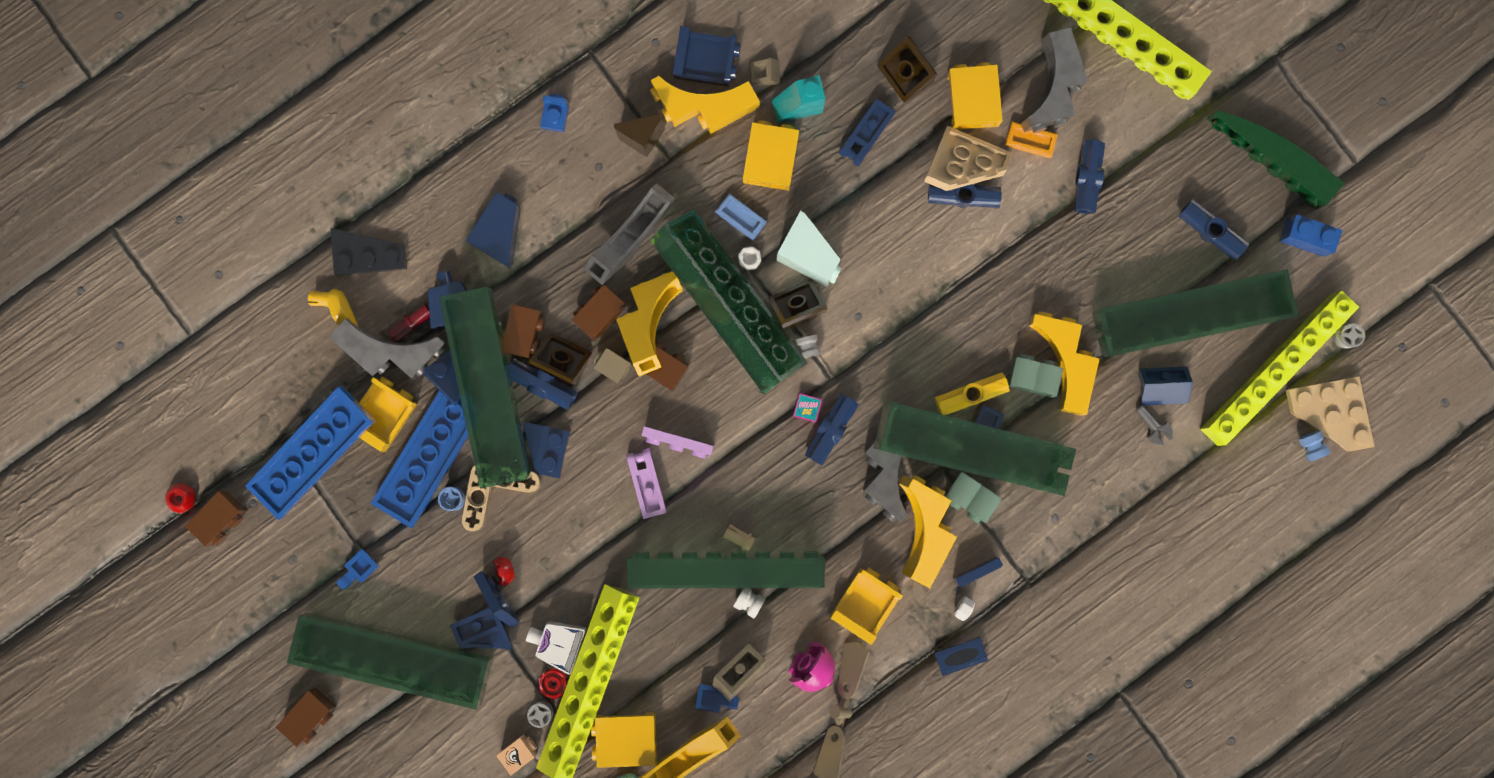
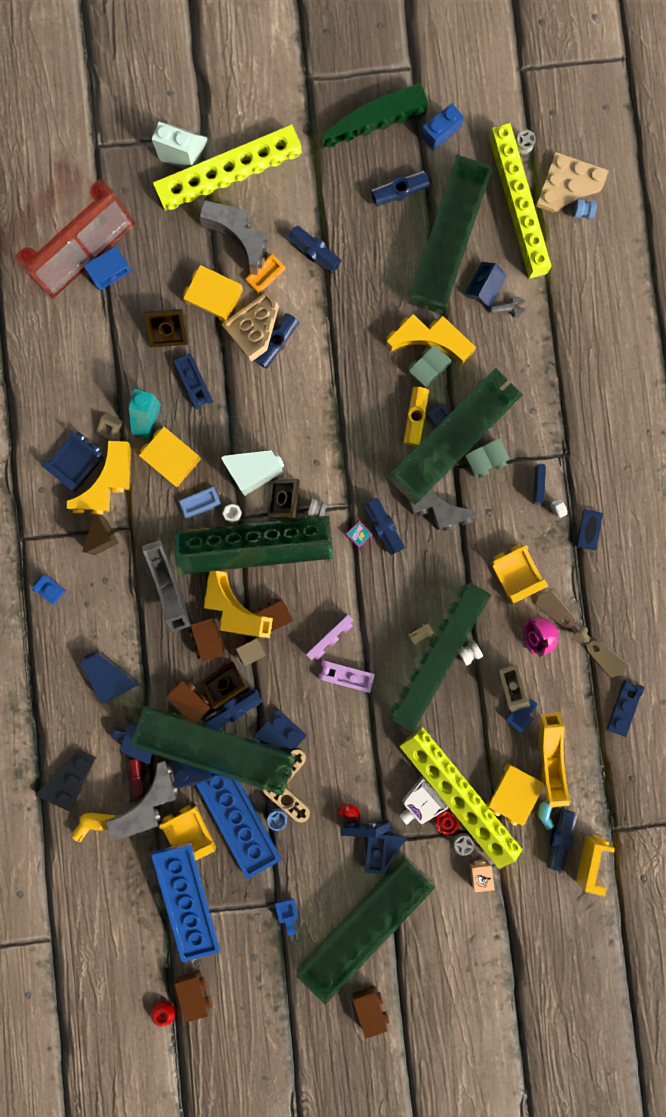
camera: 65 degrees left, 0 degrees up
(931, 538) = (497, 501): yellow arch -> none

